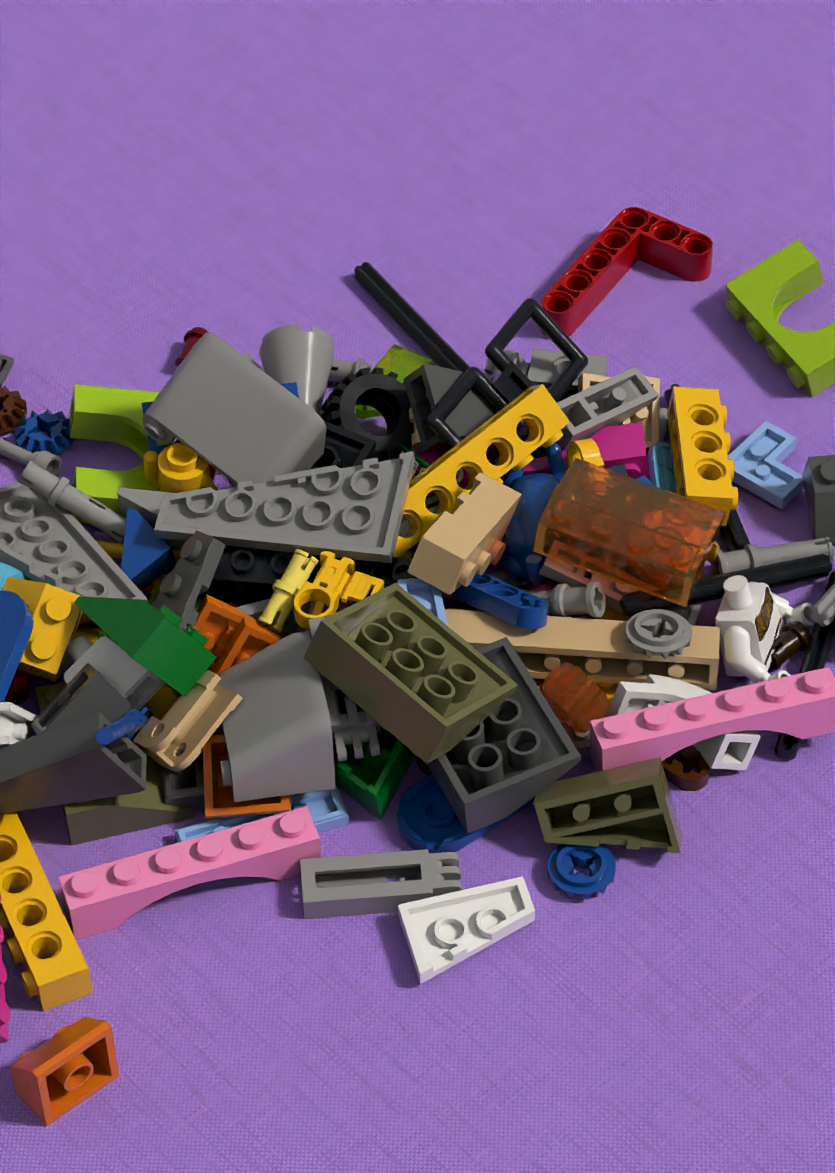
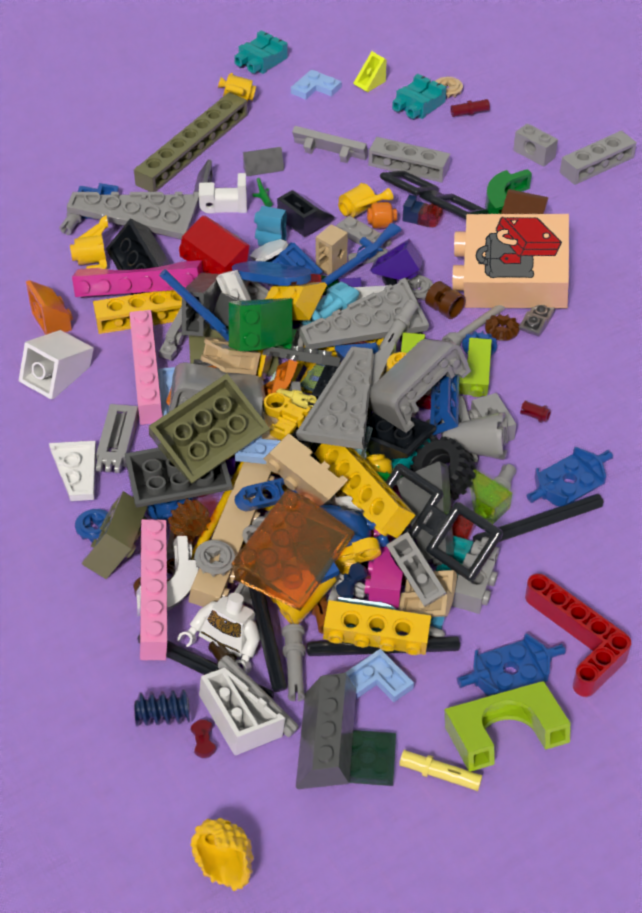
camera: 100 degrees right, 0 degrees up
(85, 848) = (173, 338): none -> light grey hinge
(210, 1018) = (54, 362): none -> white slope
(315, 283) = (581, 467): none -> blue plate
(689, 312) = (526, 656): none -> blue plate

